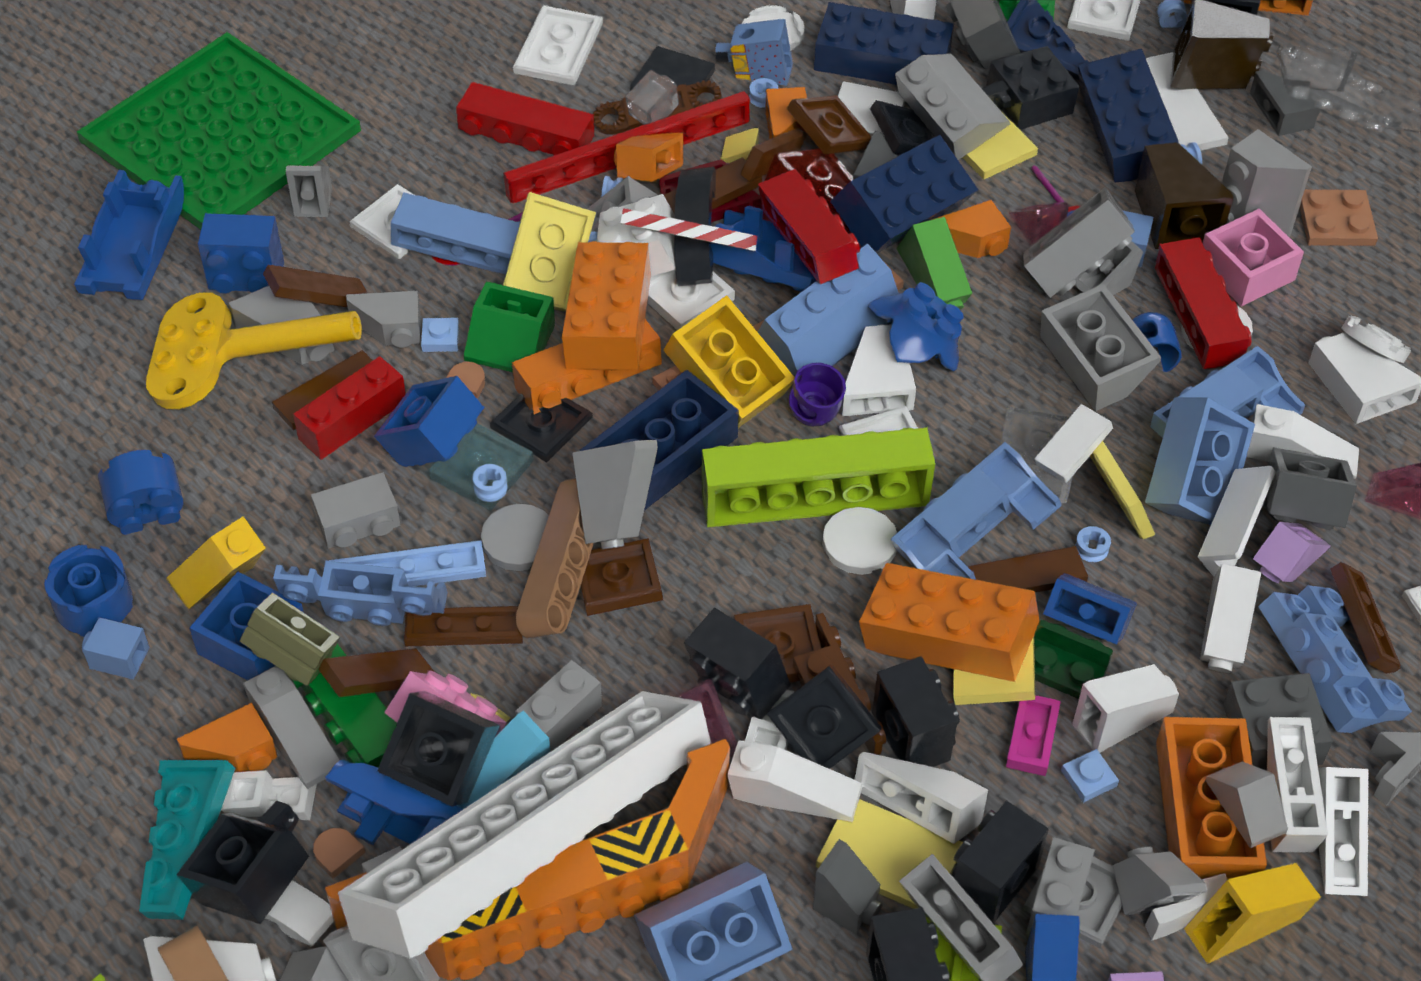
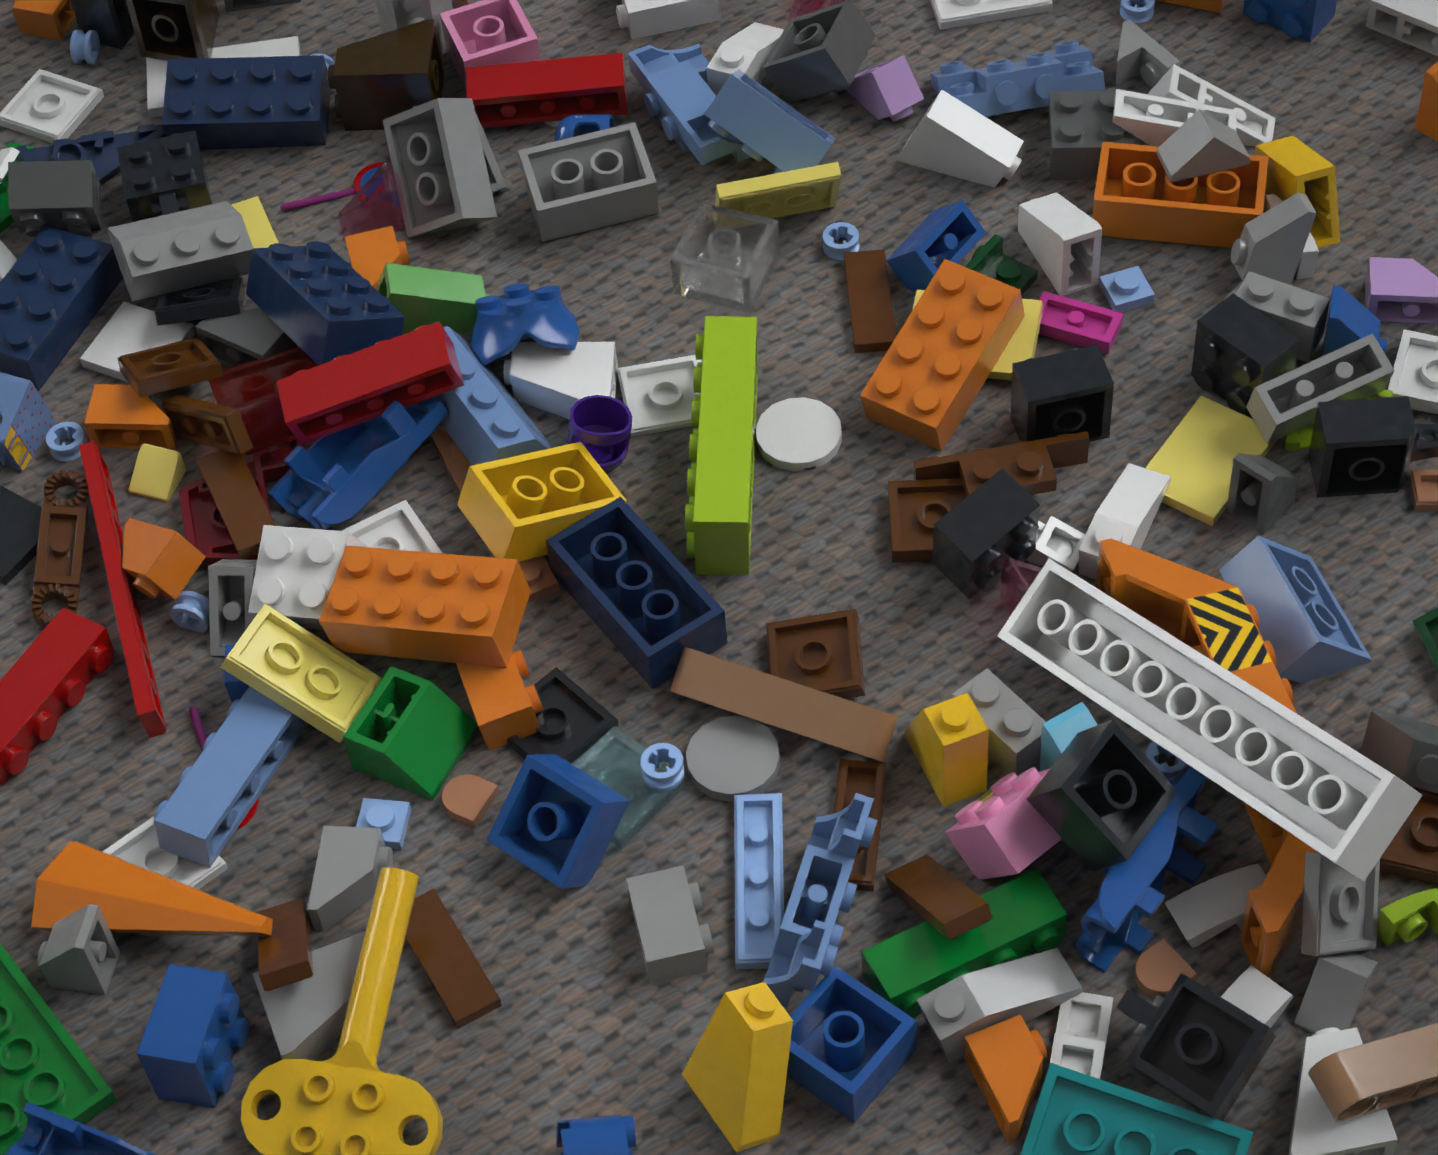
camera: 75 degrees left, 0 degrees up
(289, 639) = (908, 961): olive brick -> none
(349, 407) = (497, 921): red brick -> none
(353, 202) = (135, 899): none -> orange wedge
(519, 663) = (951, 748): none -> yellow slope
(614, 490) = (723, 616): light grey slope -> none
(652, 98) = (65, 537): clear brick -> none
(688, 229) = (336, 503): sticker -> none
(694, 204) = (298, 504): black slope -> none
(824, 719) = (1061, 472): black tile -> none
(923, 794) = (1149, 412): white slope -> none
(972, 509) = (803, 317): medium blue bracket -> none
(1073, 443) = (750, 201): white tile -> none
(1235, 517) = (847, 108): white panel -> none
(1365, 618) = (971, 52): reddish brown tile -> none

